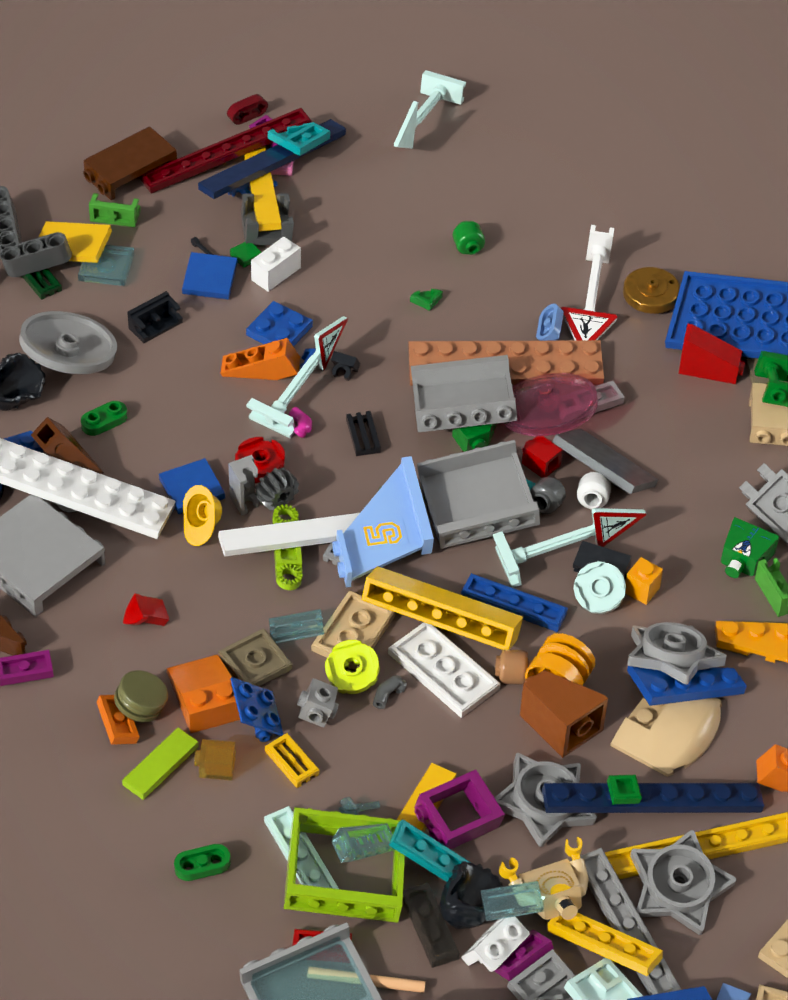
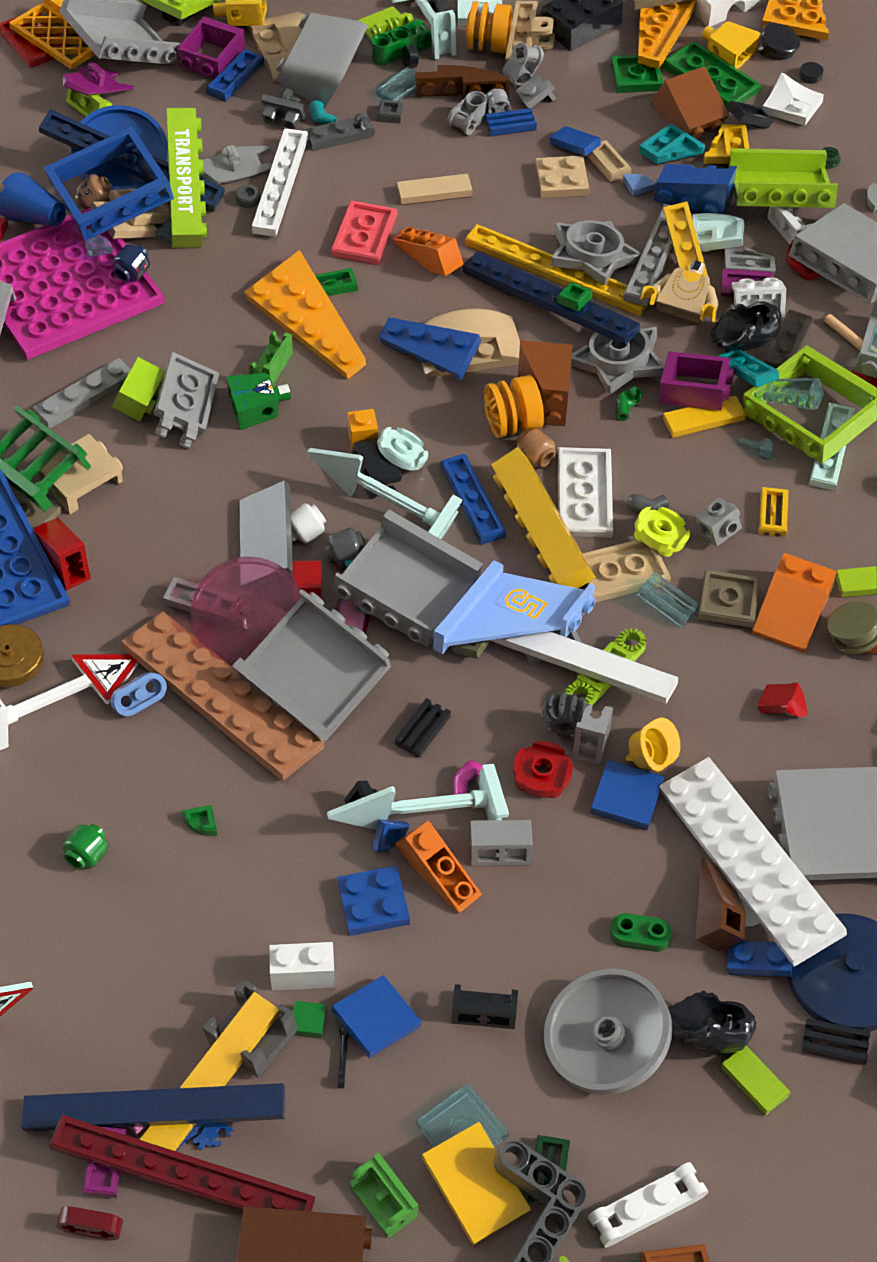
camera: 135 degrees left, 5 degrees up
(216, 759) = (836, 543): clear yellow brick -> none
(236, 397) = (501, 842): none -> light grey hinge
(257, 709) = (771, 548): blue hinge -> none
(300, 138) = (102, 1097): teal wing -> none
(497, 764) = (625, 401): none -> green arm
(512, 901) = (733, 287): clear light blue tile -> none
(673, 650) = (415, 362): light grey plate -> none

